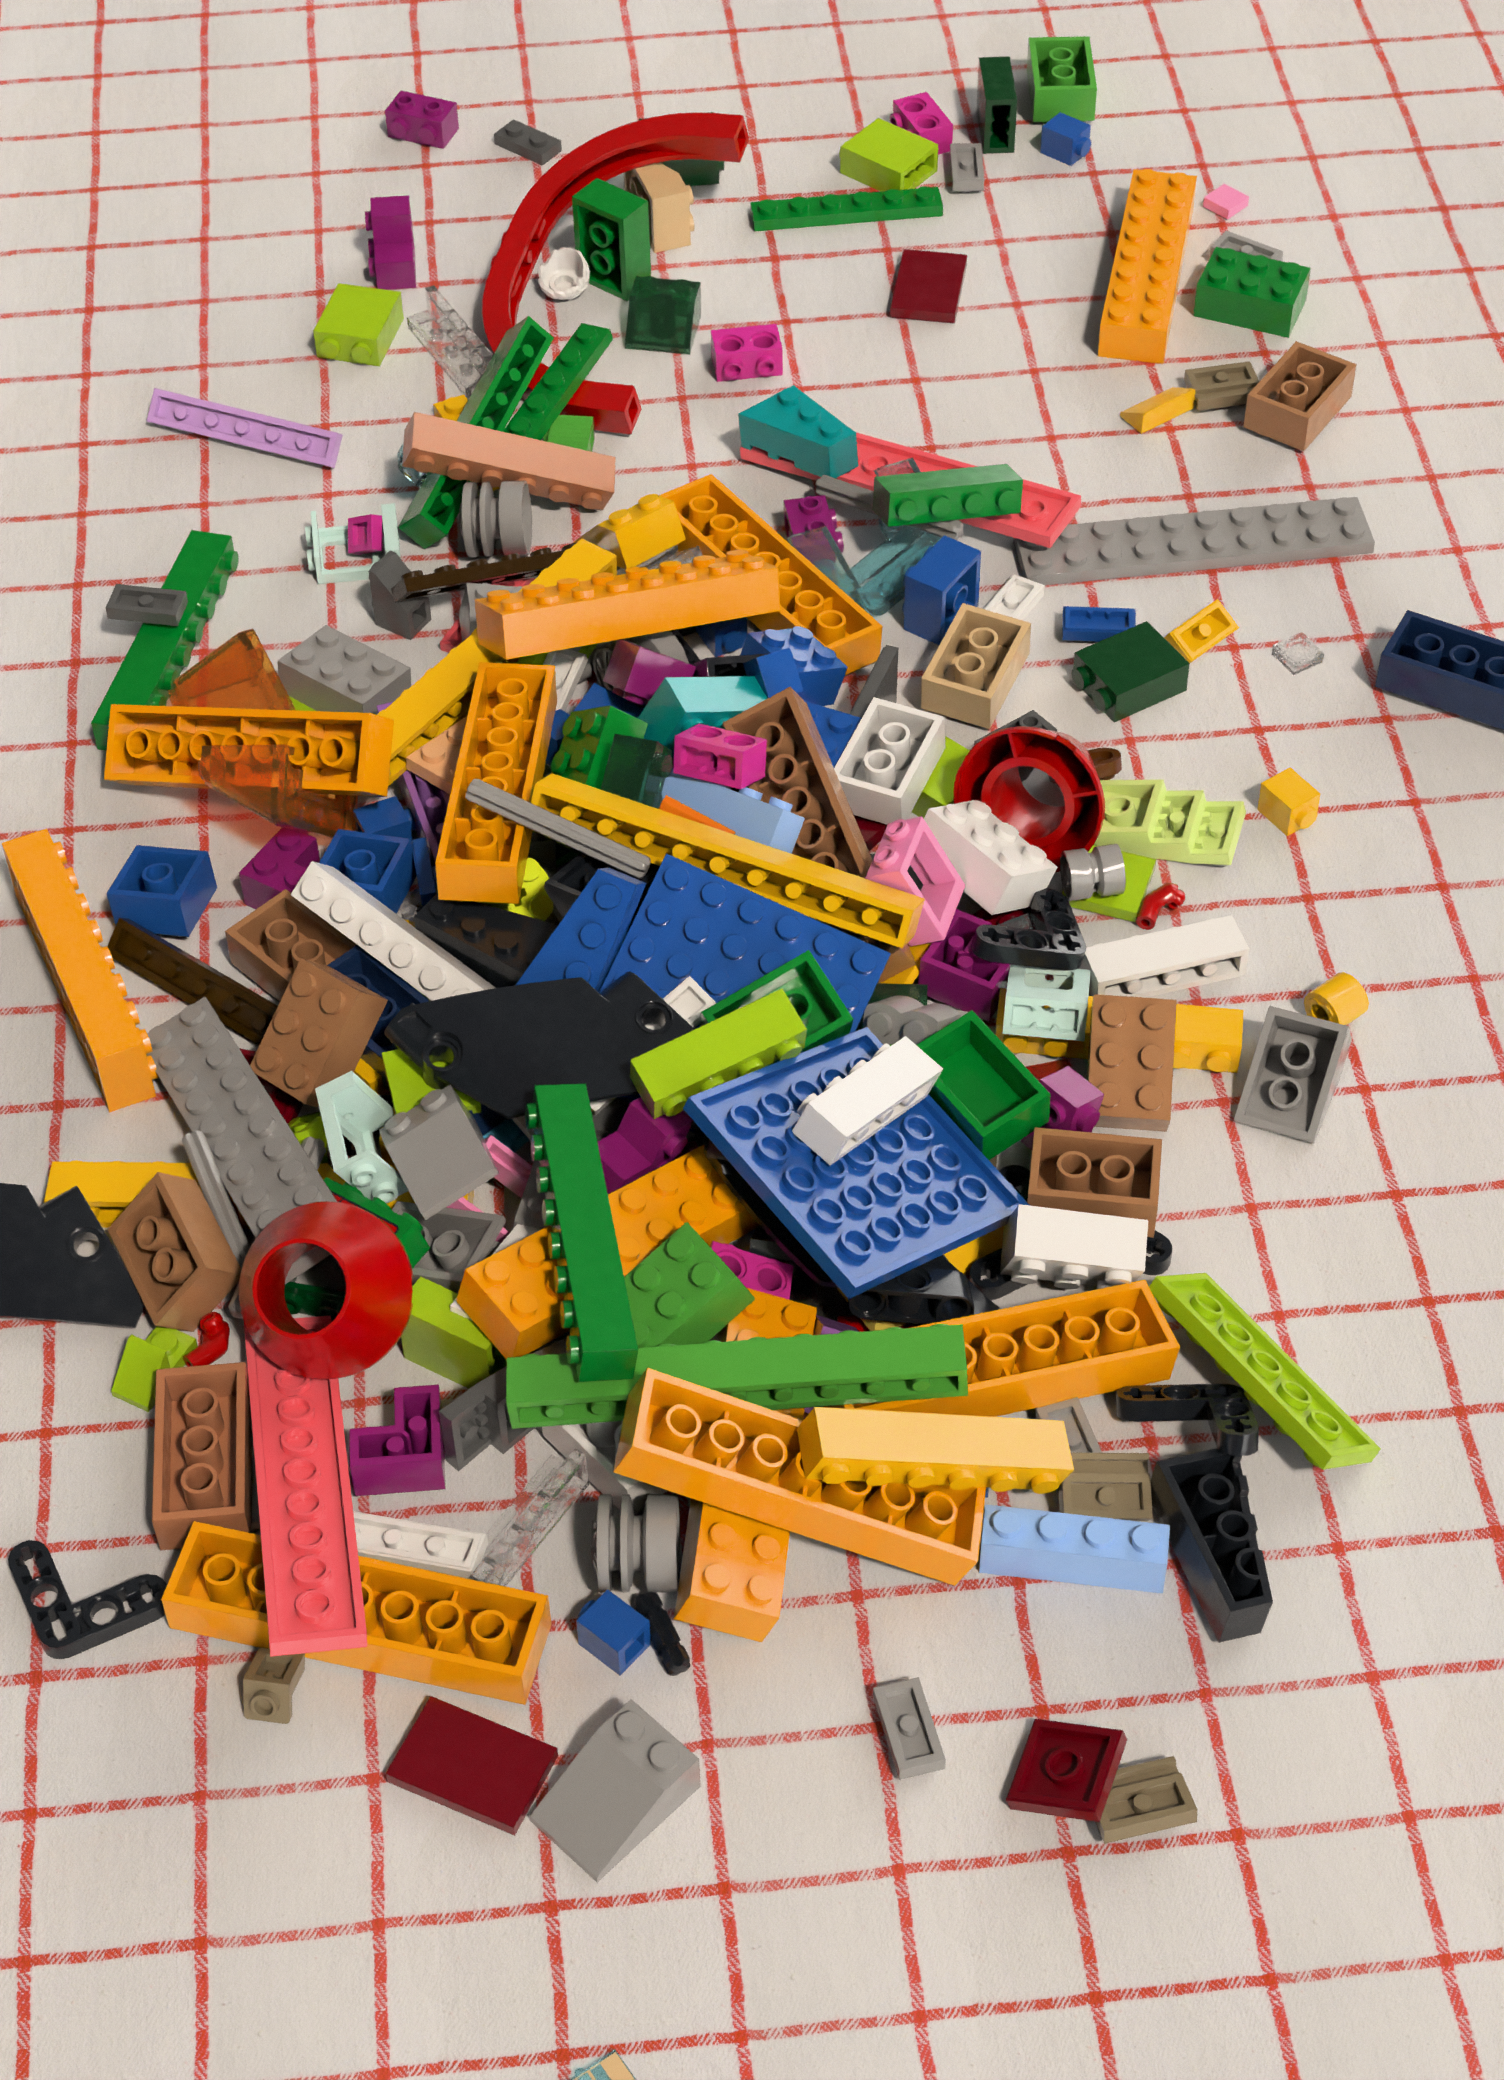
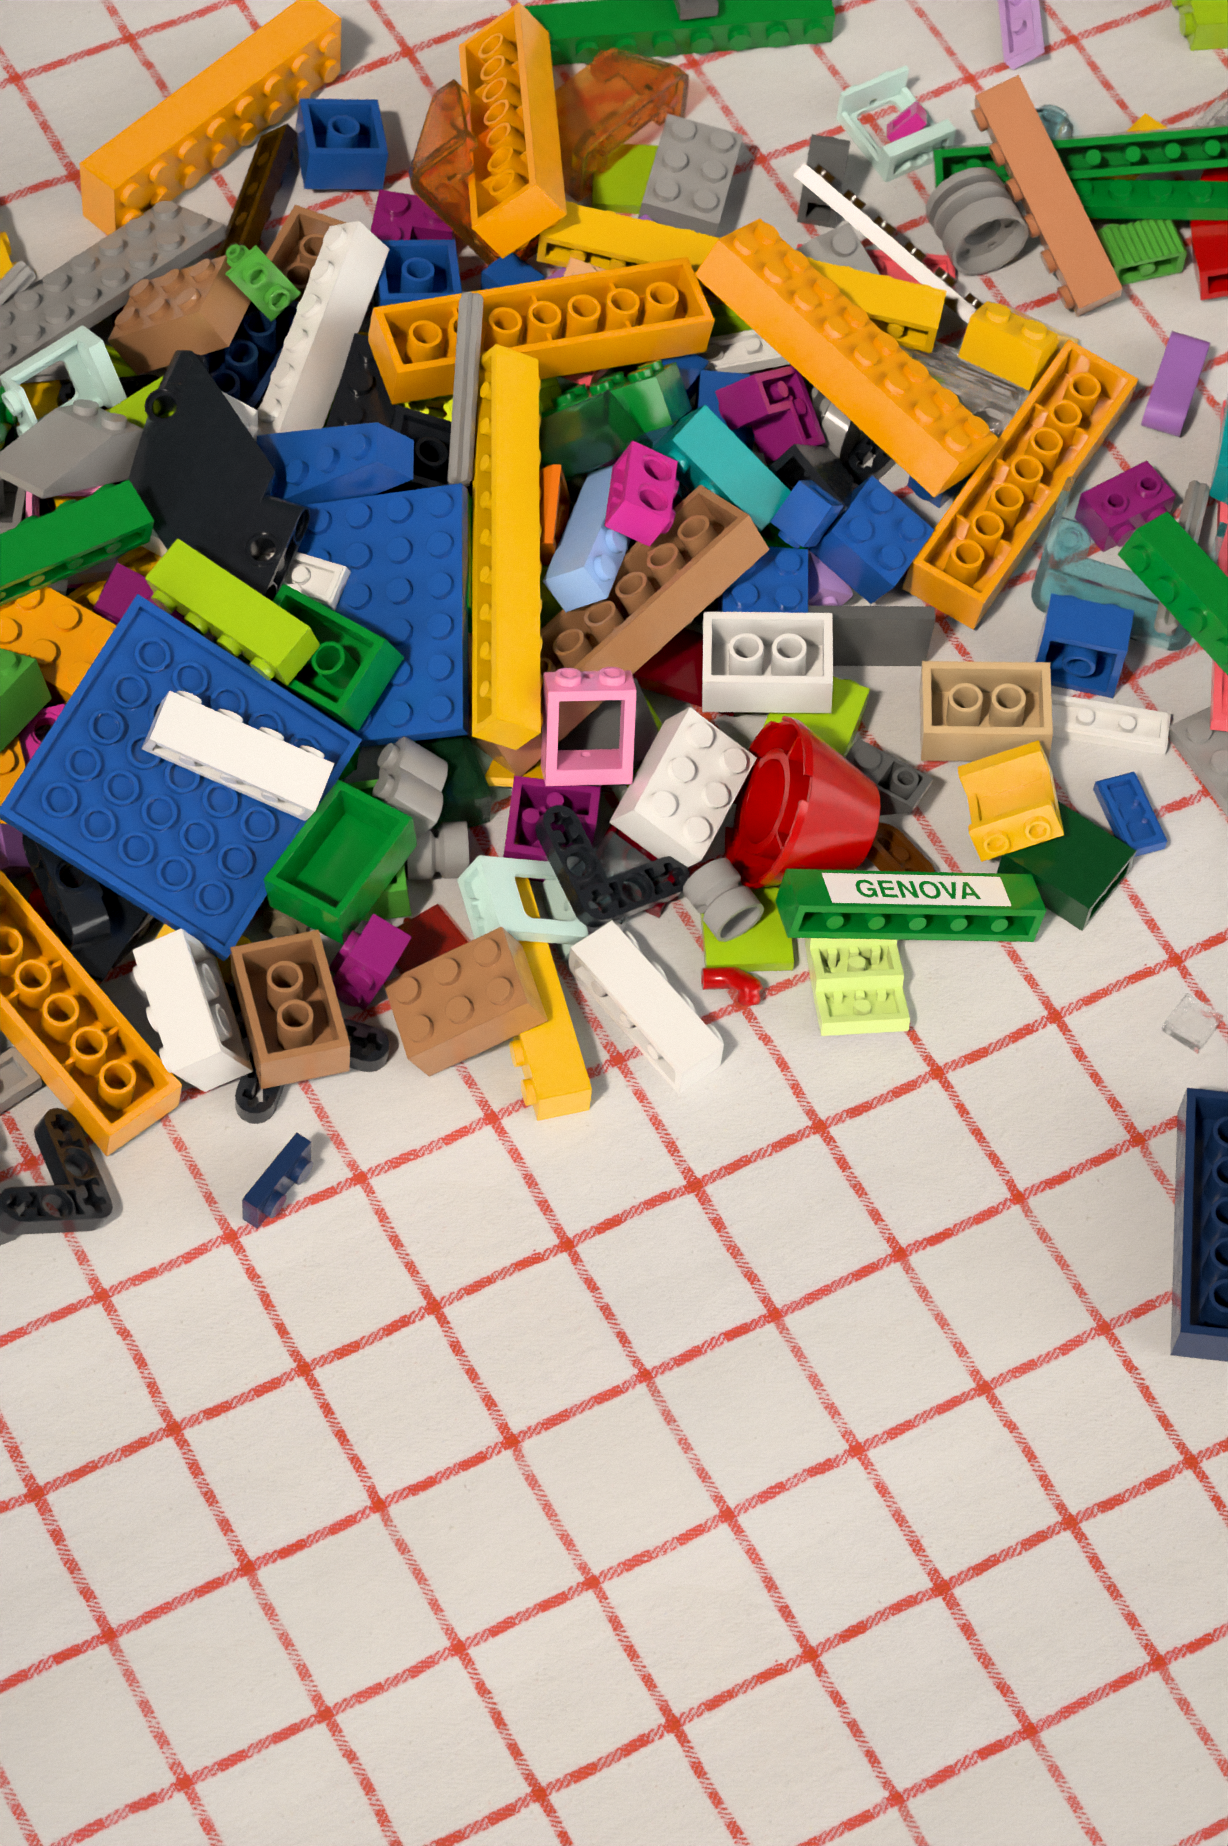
camera: 60 degrees right, 10 degrees up
(331, 949) = (260, 280): none -> bright green hinge
(693, 459) = (1175, 383): none -> medium lavender beam
(1075, 674) = (1011, 801): none -> yellow panel
(1148, 761) = (909, 905): none -> green brick
(1202, 631) = (1174, 919): yellow slope -> none
(1246, 1257) = (269, 1191): none -> dark blue plate
(1263, 1371) = (129, 1226): lime plate -> none
(1288, 801) = (938, 1065): yellow brick -> none
(1293, 1074) = (539, 1164): light grey slope -> none
(1337, 1000) = (655, 1179): yellow piece -> none

